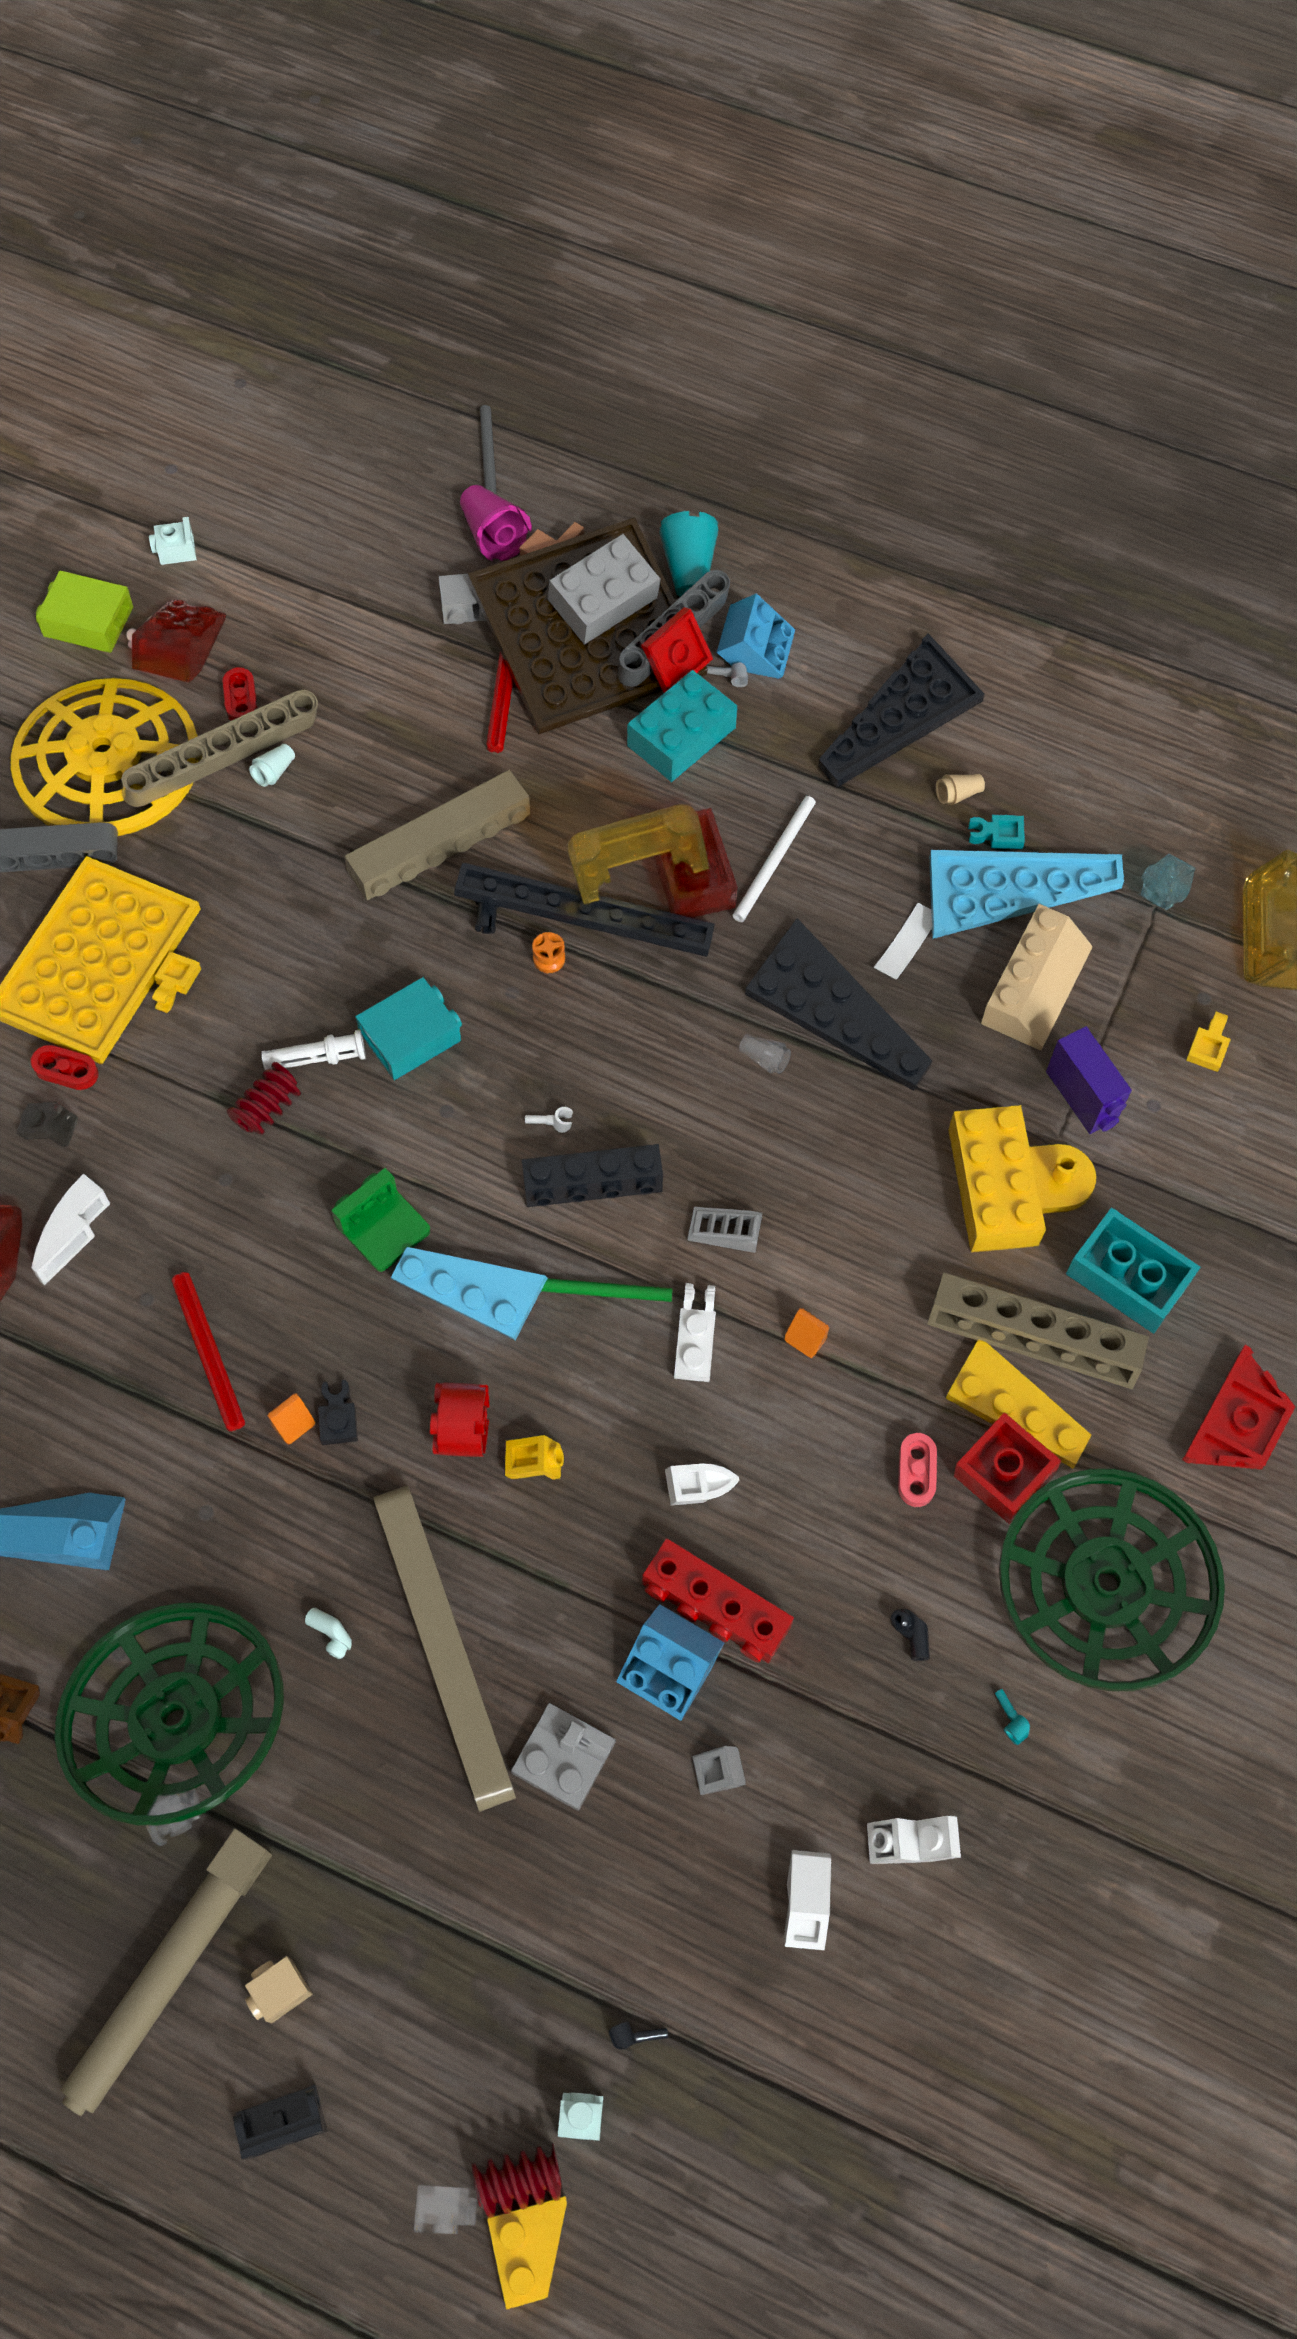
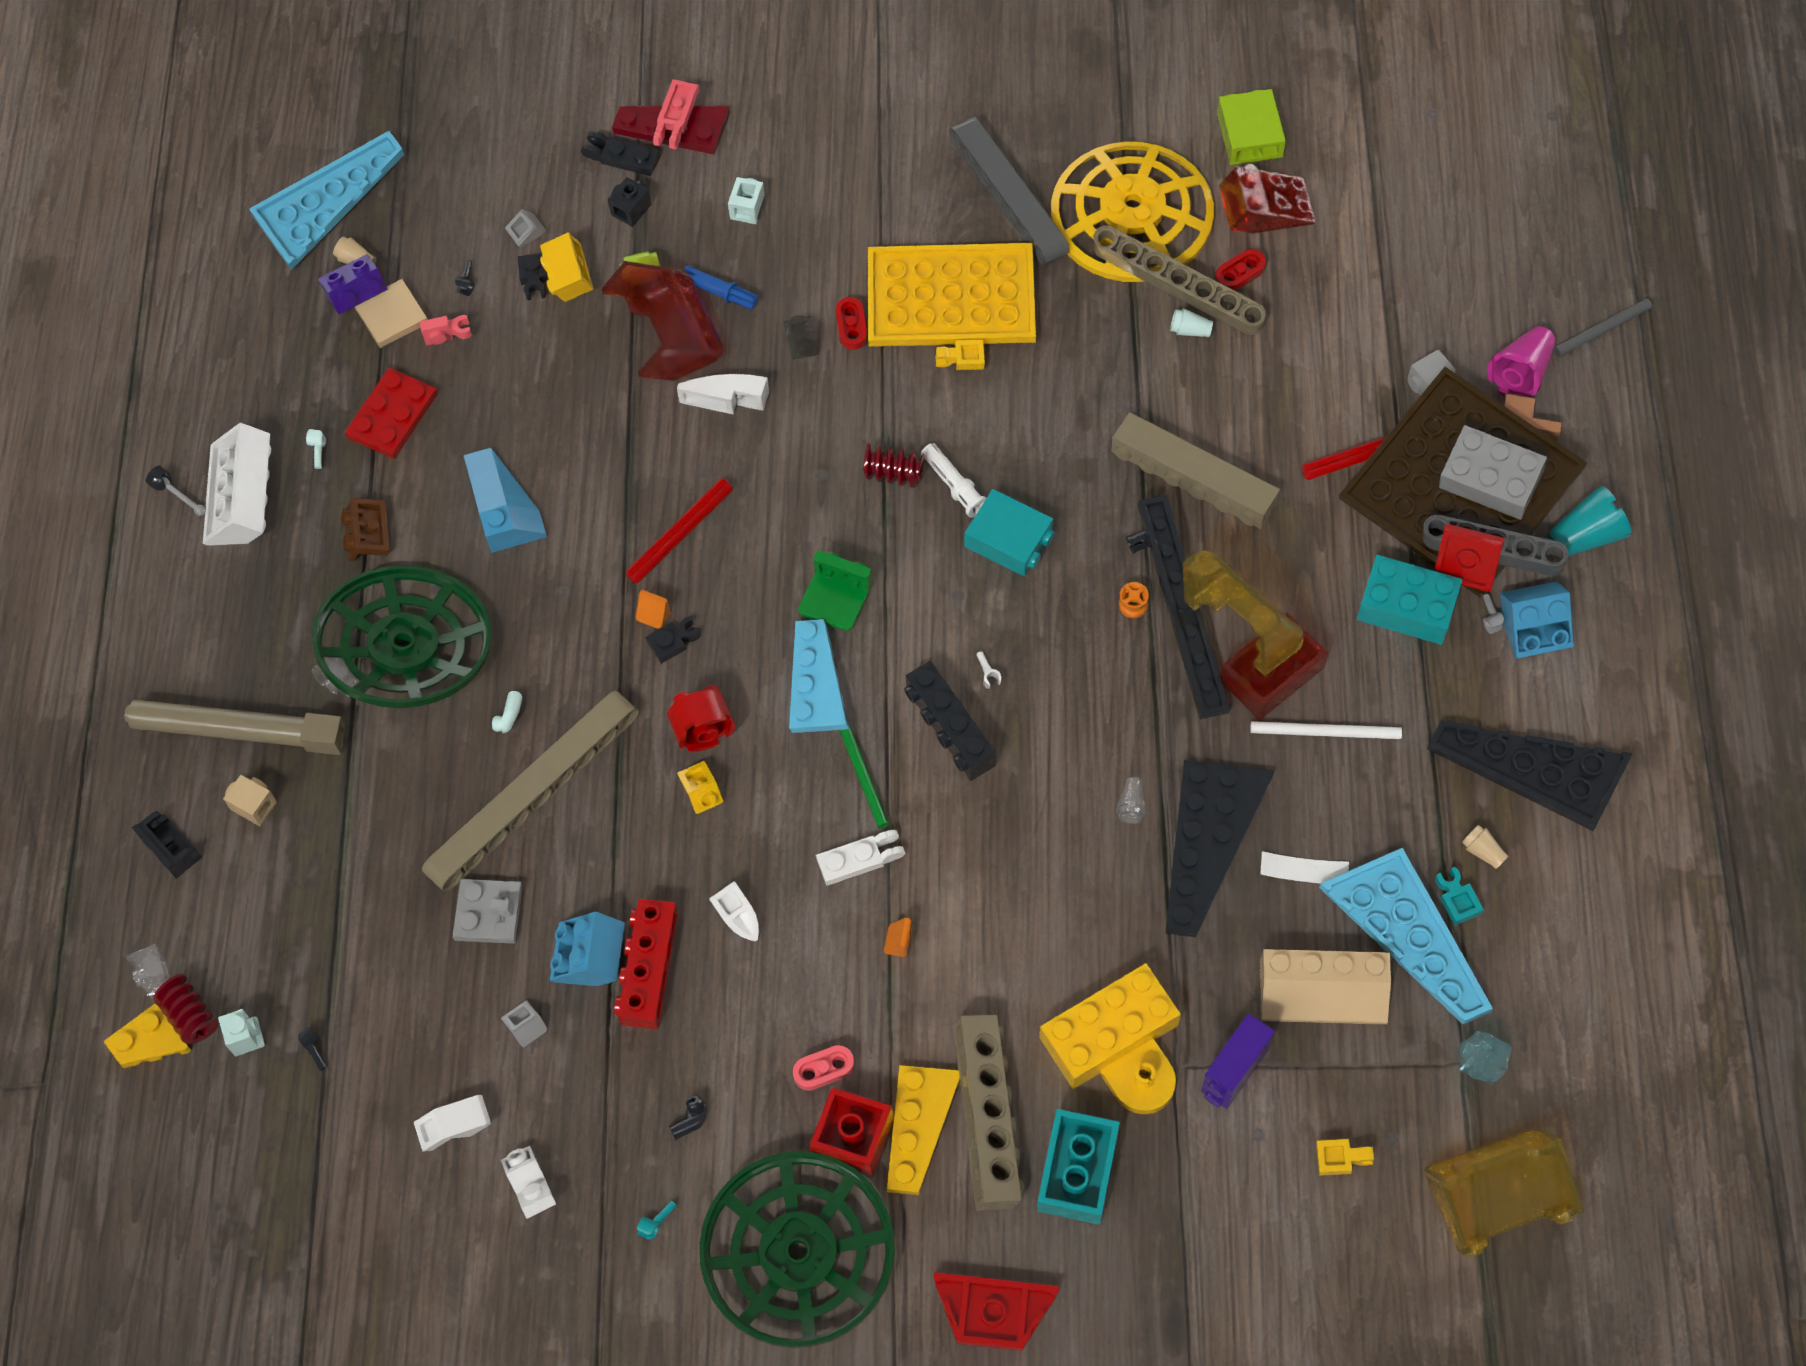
camera: 70 degrees right, 0 degrees up
(173, 542) = (1356, 151): light aqua brick -> none
(734, 1241) = (966, 860): light grey slope -> none

